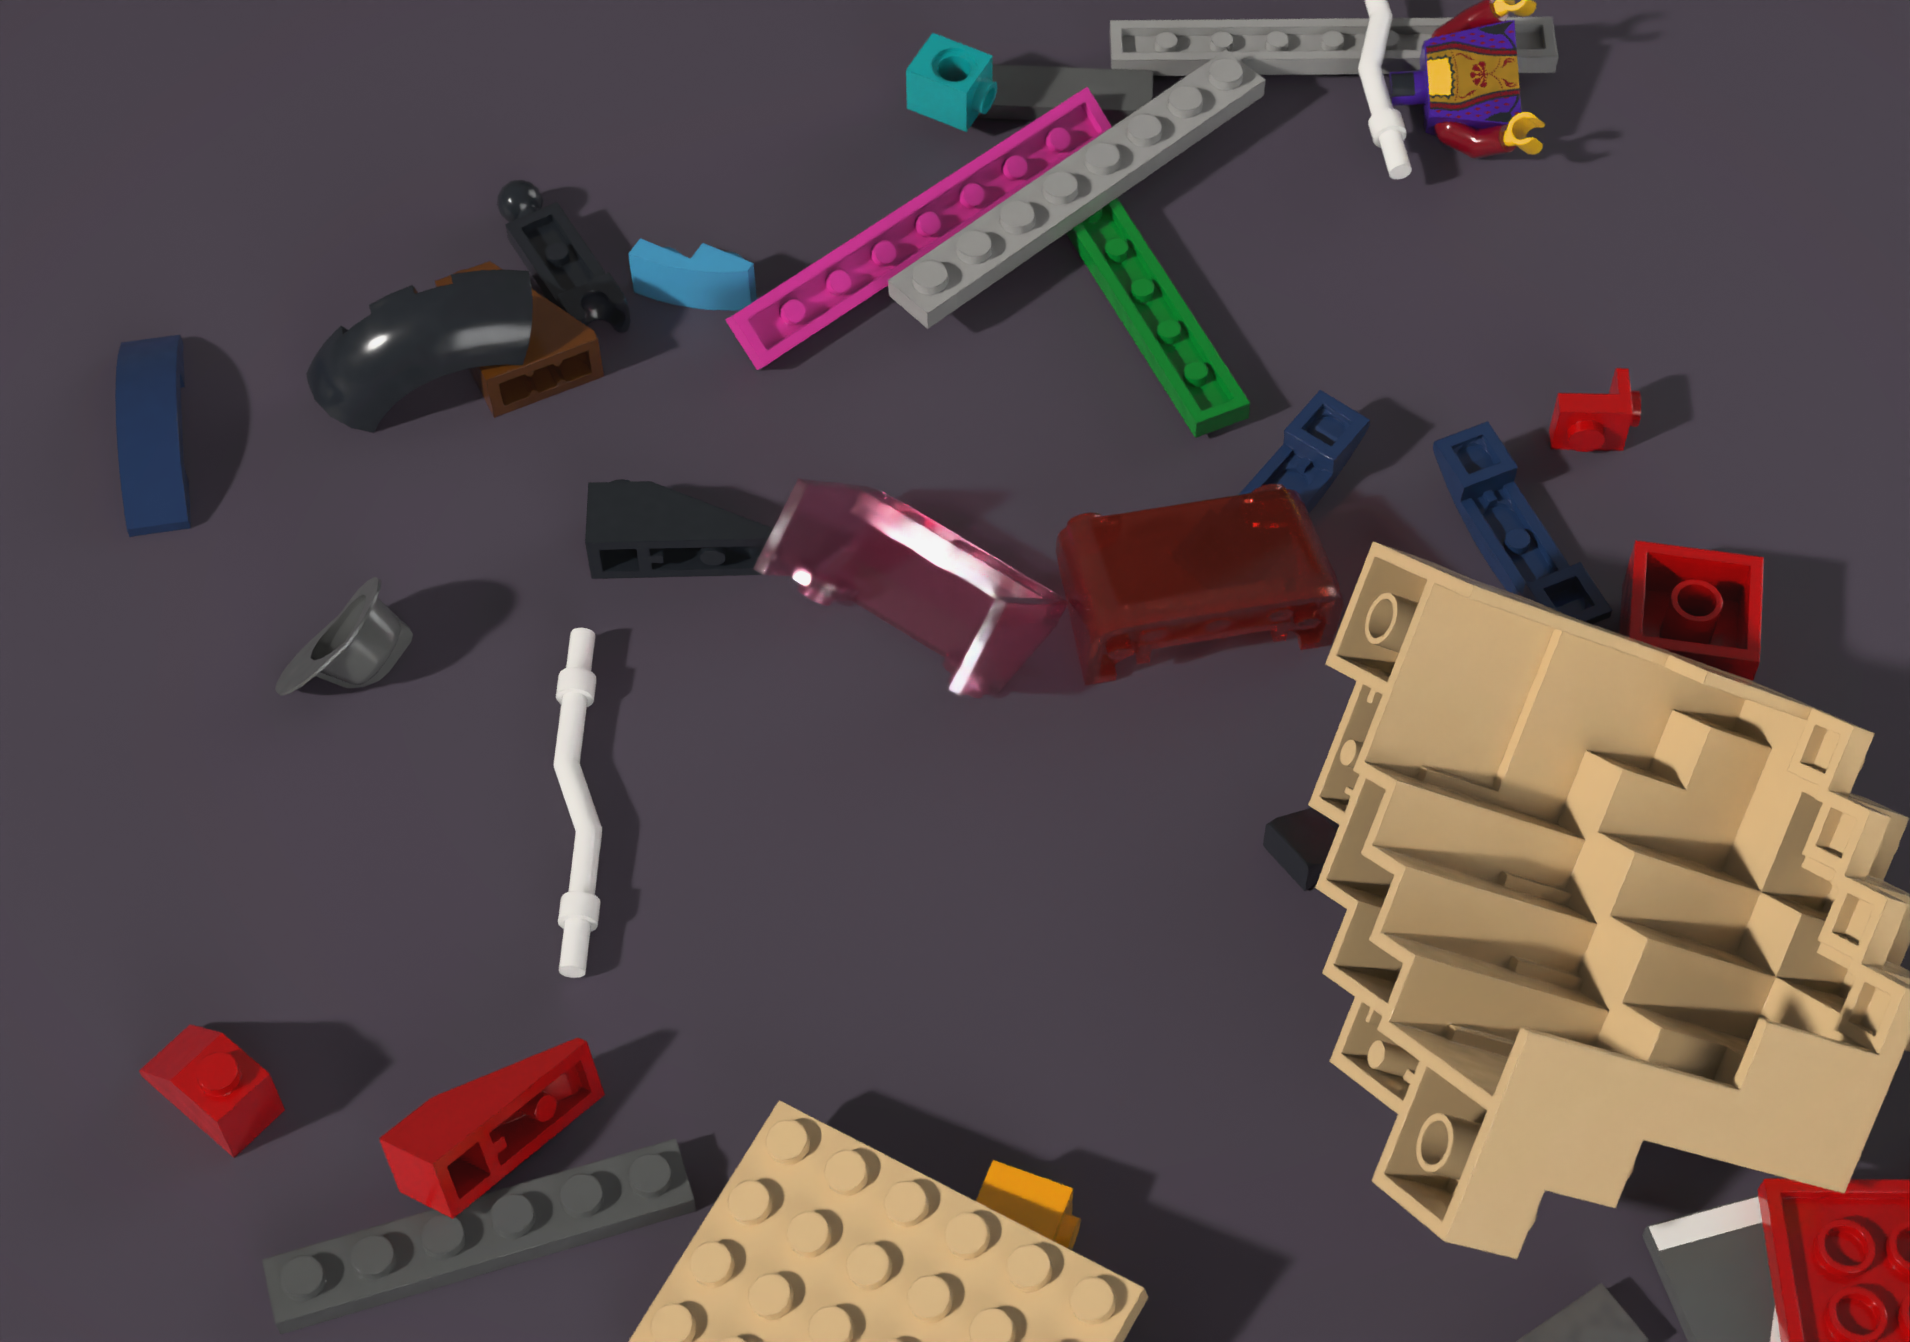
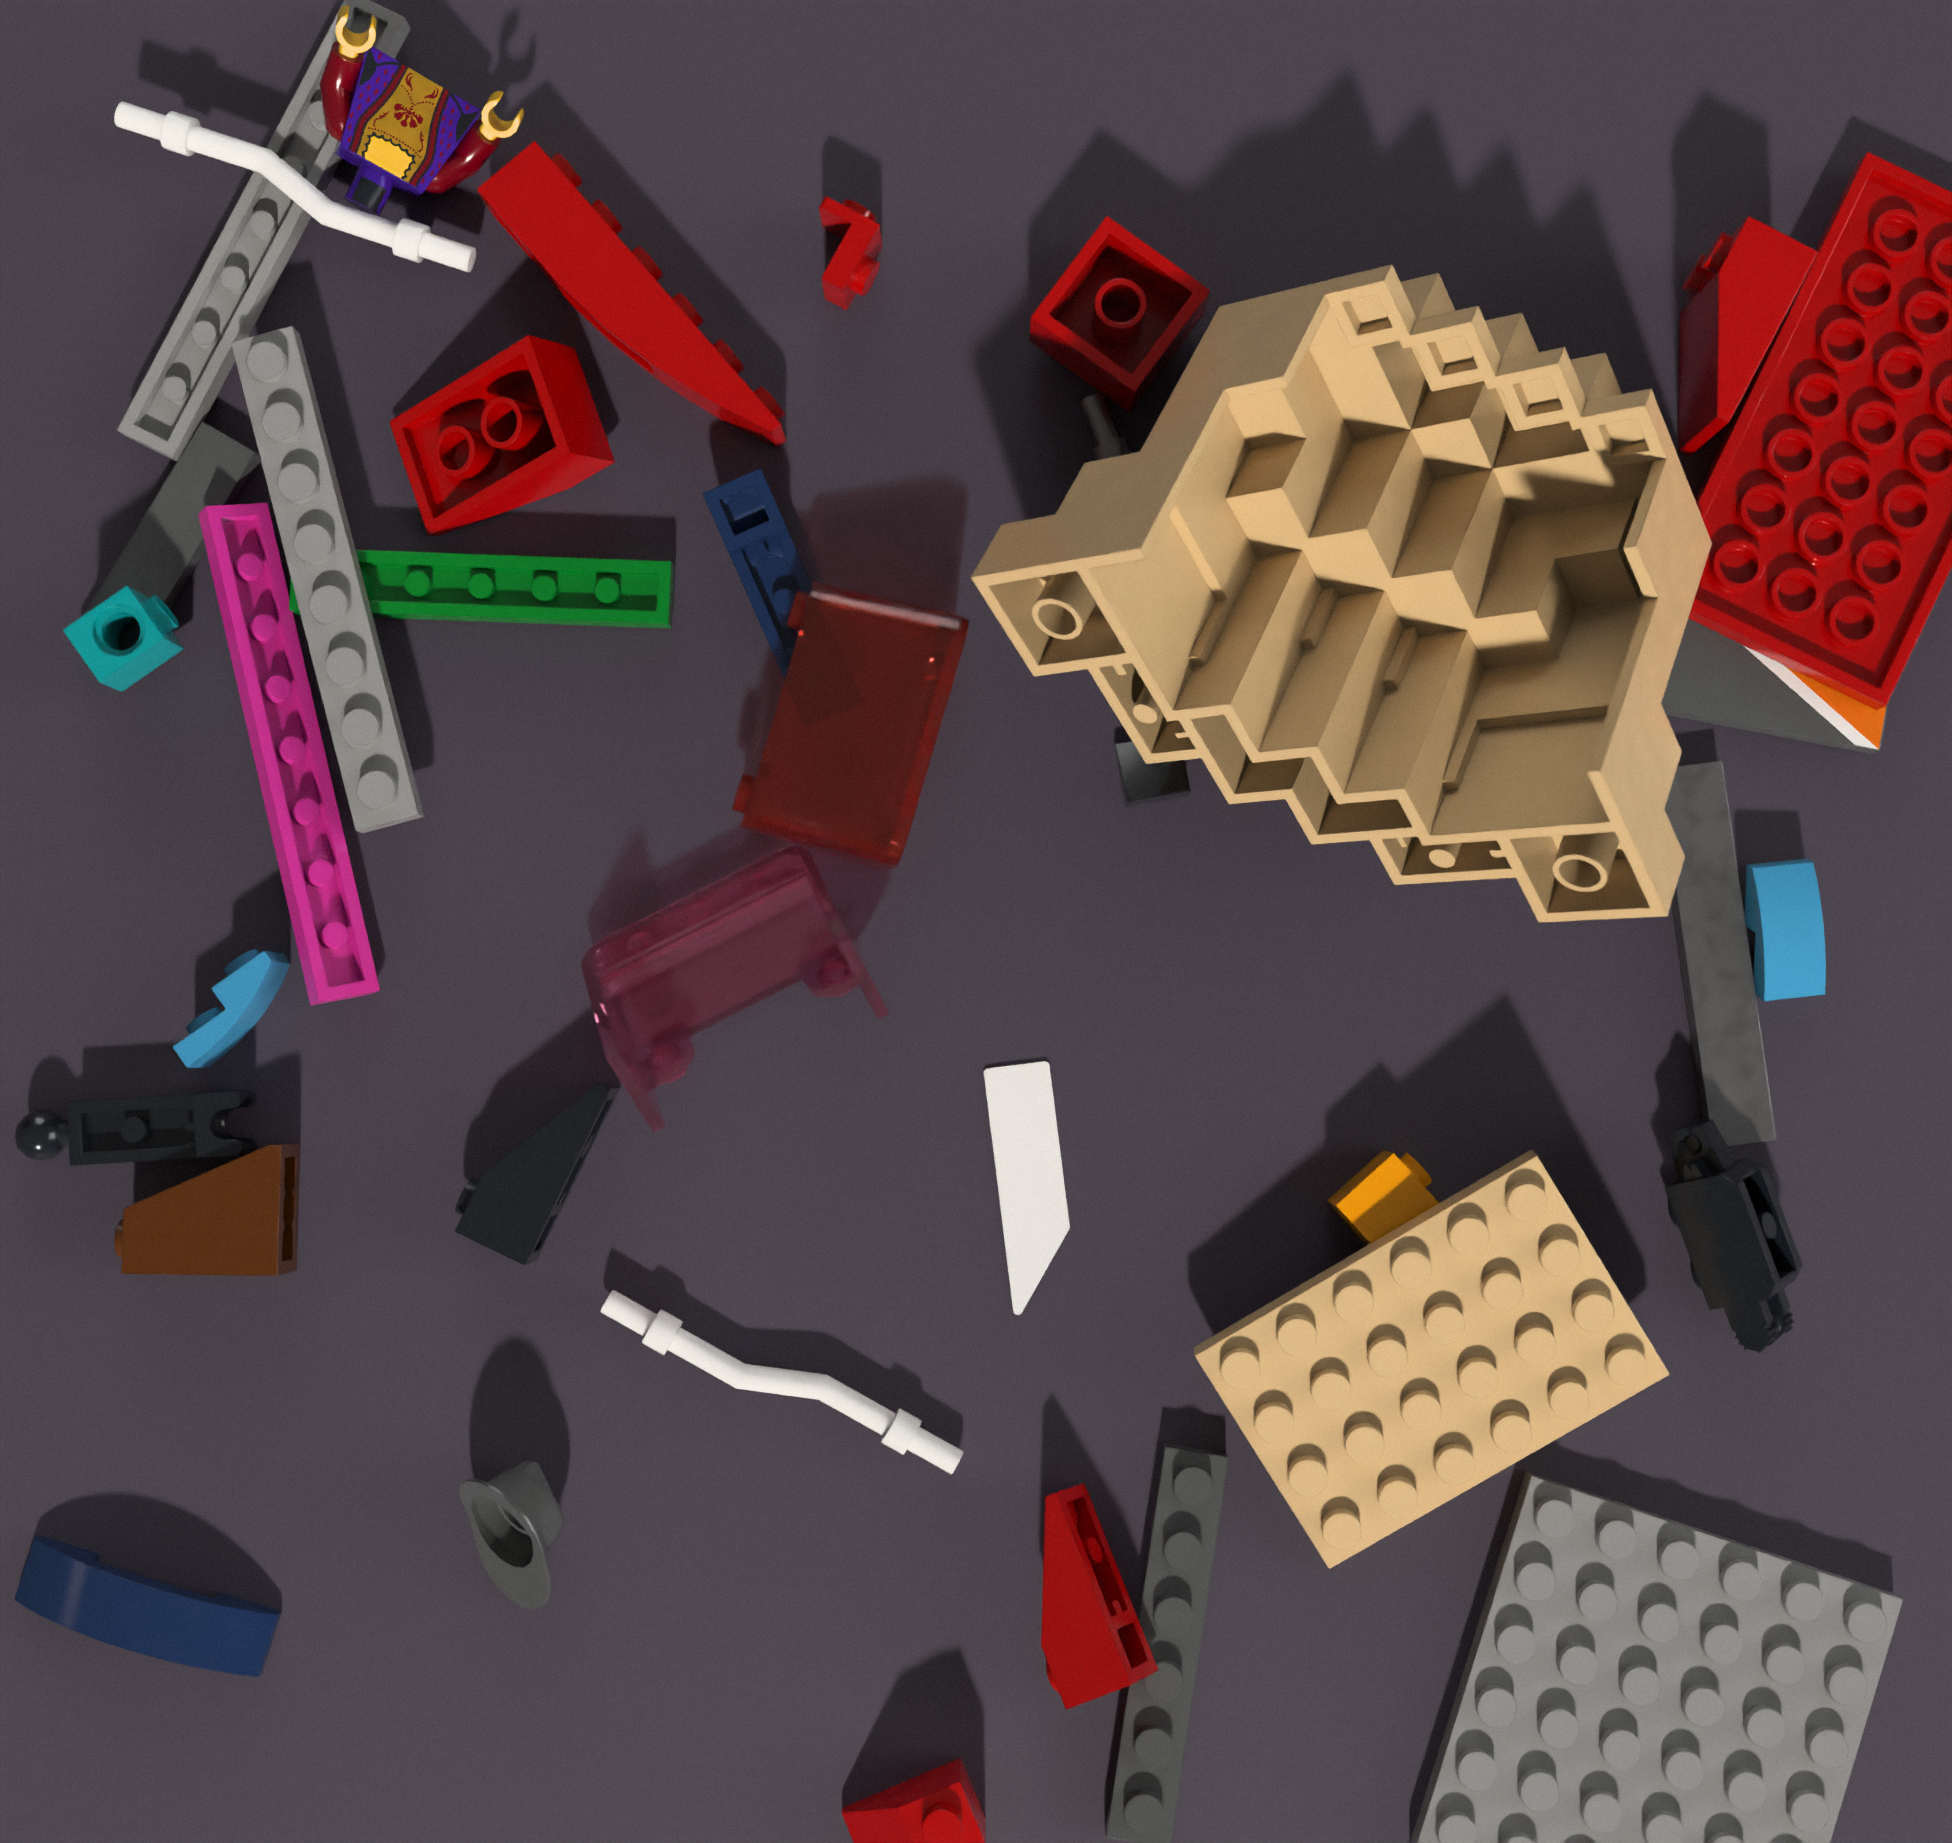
camera: 60 degrees left, 30 degrees up
(421, 338) = (206, 1332): black brick -> none
(876, 917) = (1027, 1172): none -> white sticker
(1278, 255) = (502, 436): none -> red slope
(1449, 276) = (619, 289): none -> red slope
(1508, 530) = (940, 406): dark blue slope -> none

